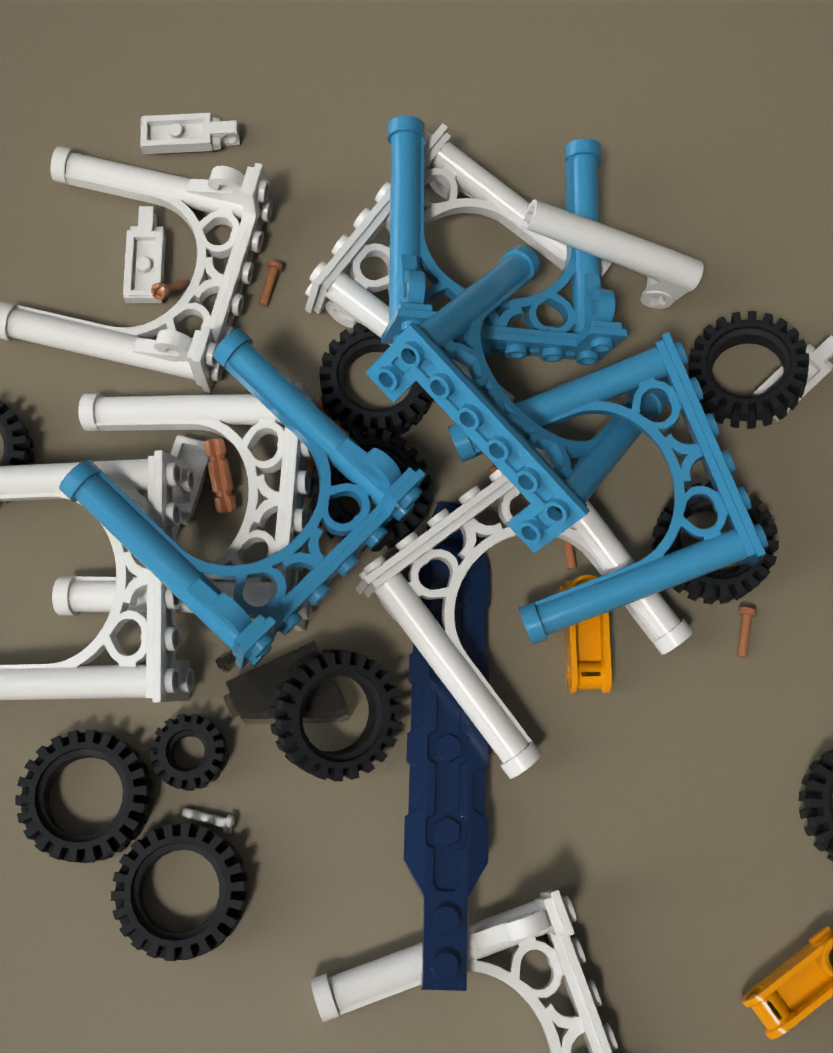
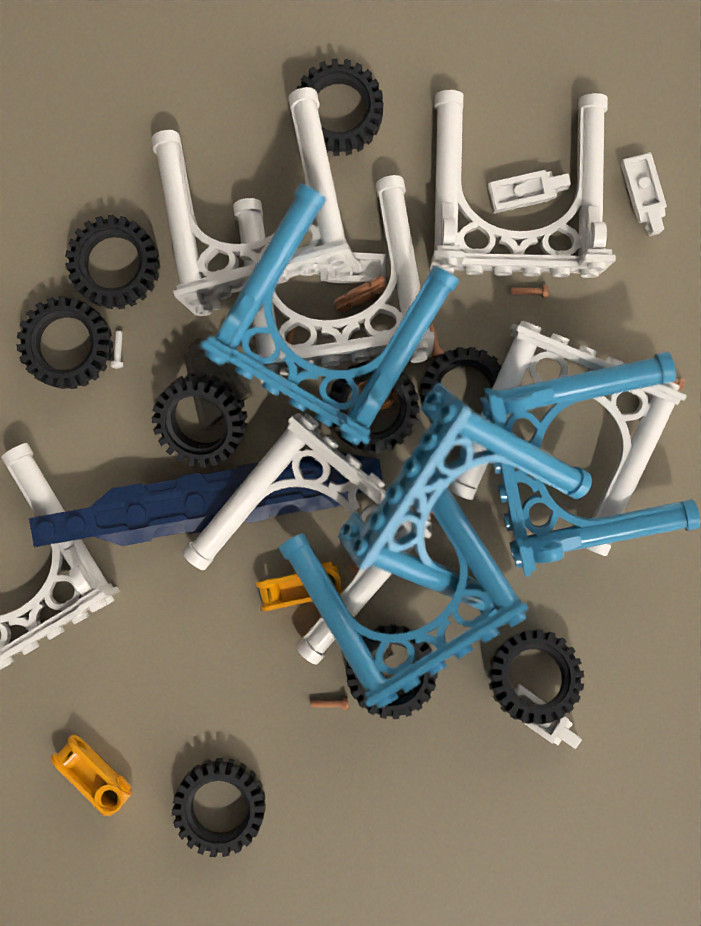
camera: 85 degrees right, 15 degrees up
(161, 290) = (498, 210): nougat piece -> none
(170, 735) = (140, 320): black tyre -> none
(667, 271) = (602, 598): white axle -> none

